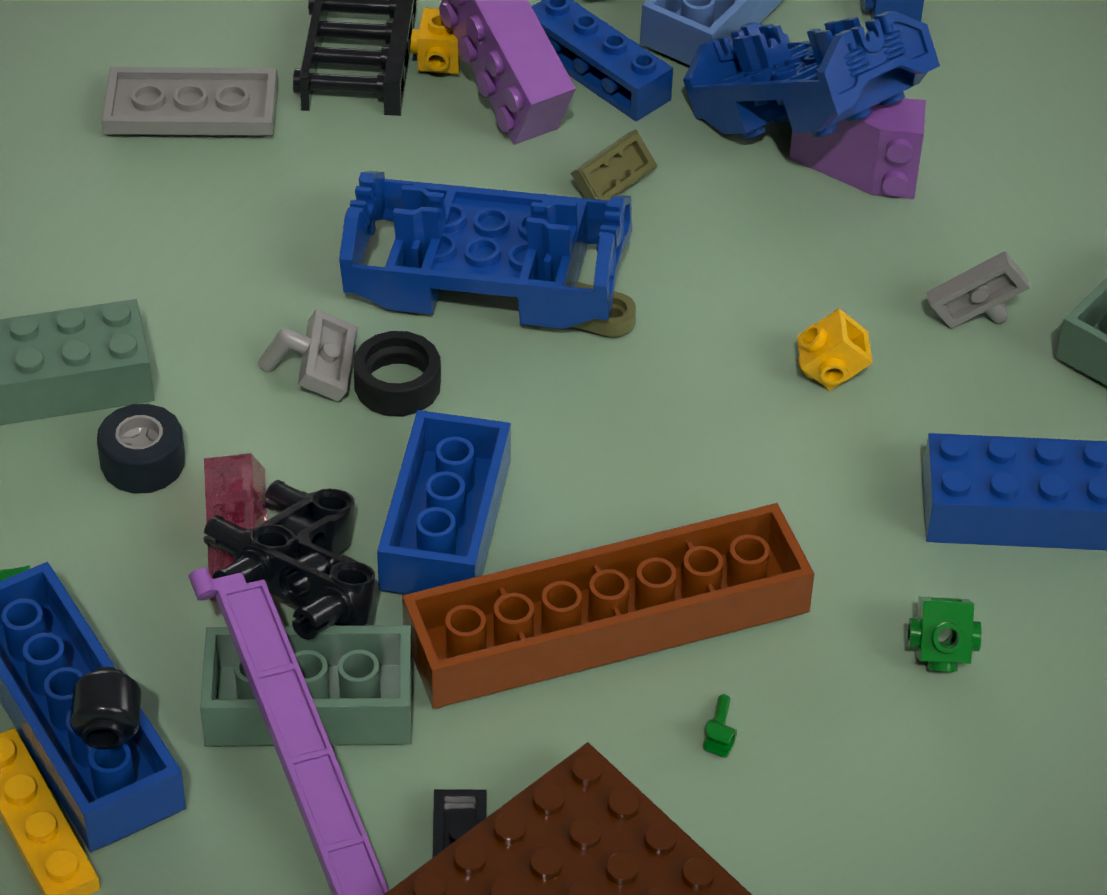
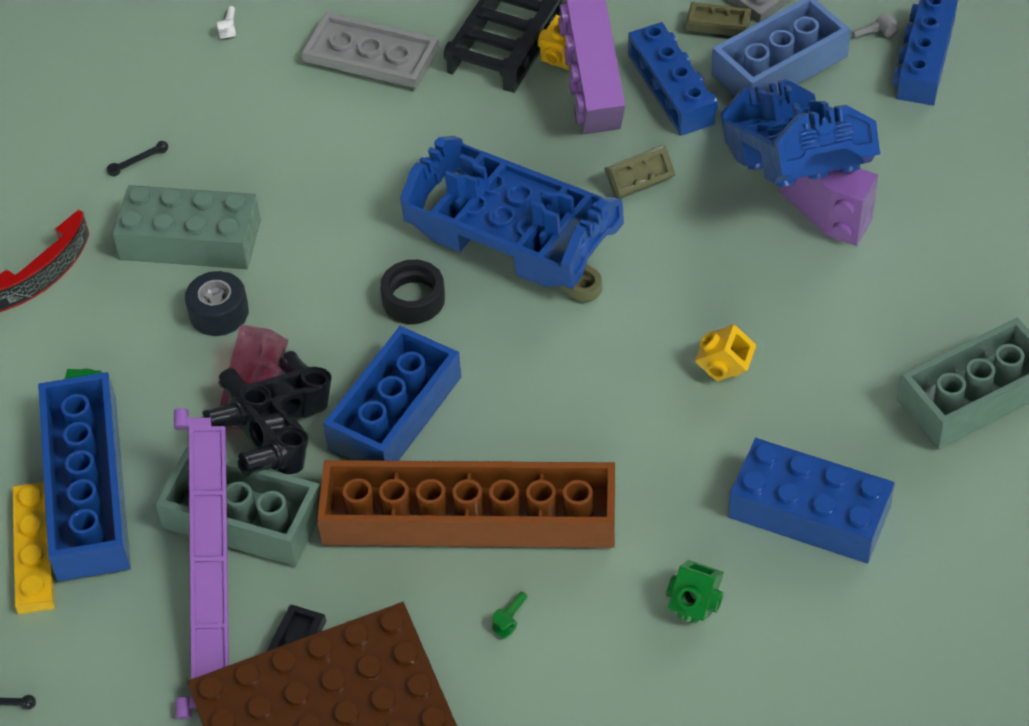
camera: 25 degrees right, 5 degrees up
(105, 708) = (87, 488): black head -> none
(325, 352) = (368, 264): light grey plate -> none
(979, 291) = (855, 333): light grey plate -> none

